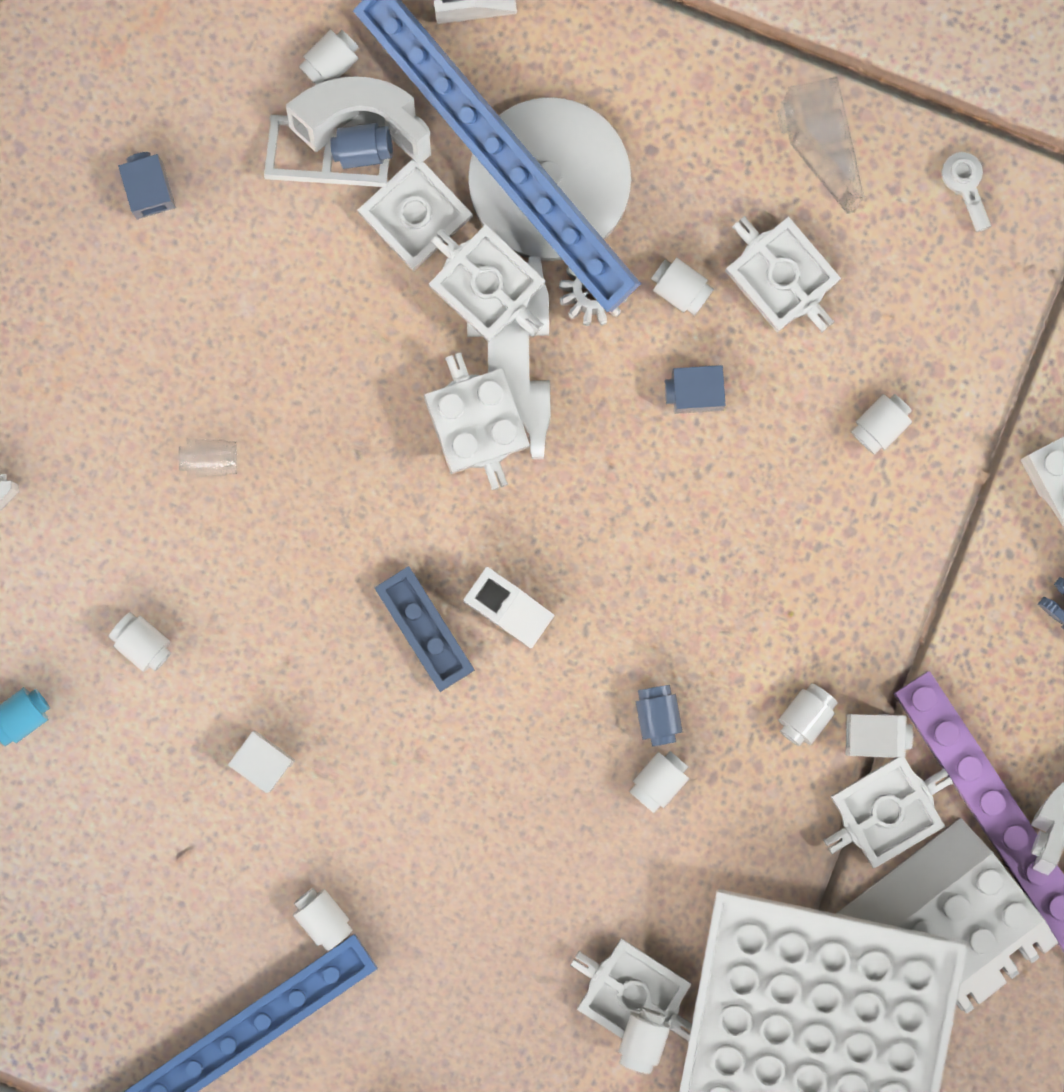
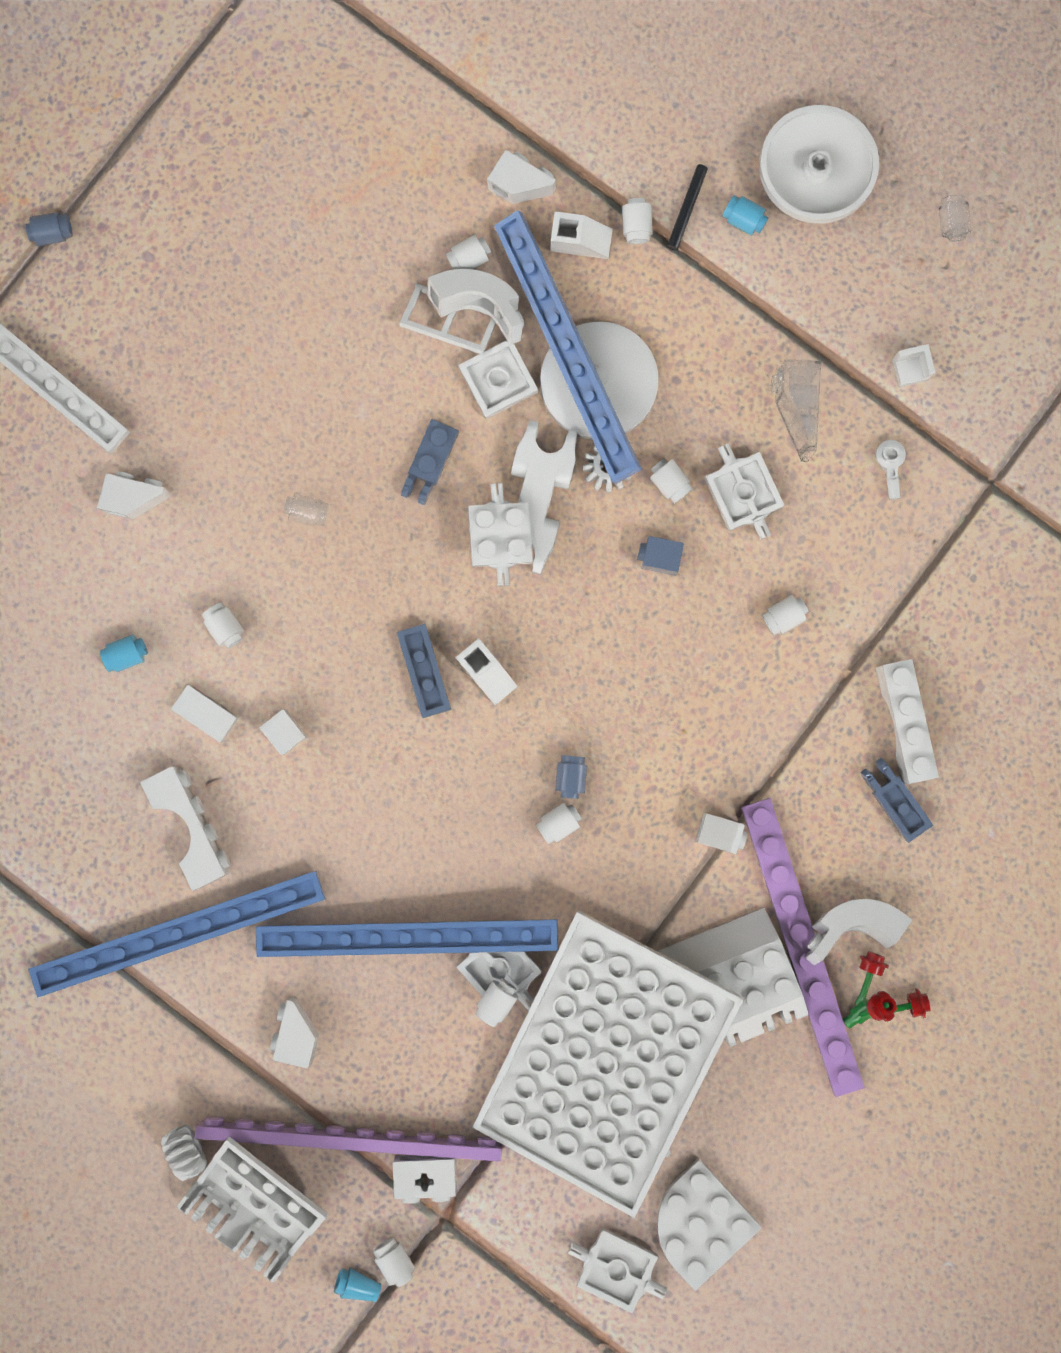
camera: 20 degrees right, 0 degrees up
(133, 883) = (203, 860): none -> white arch
(146, 185) = (316, 308): sand blue brick -> none
(147, 766) = (204, 713): none -> white tile
(322, 918) = (296, 853): white brick -> none
(354, 344) = (430, 459): none -> sand blue hinge
(362, 145) = (473, 320): sand blue brick -> none
(487, 283) = (534, 440): white plate -> none
(501, 989) = (407, 938): none -> medium blue plate
(807, 715) = (676, 805): white brick -> none
(887, 811) = (713, 889): white plate -> none
(960, 46) = (913, 365): none -> white panel

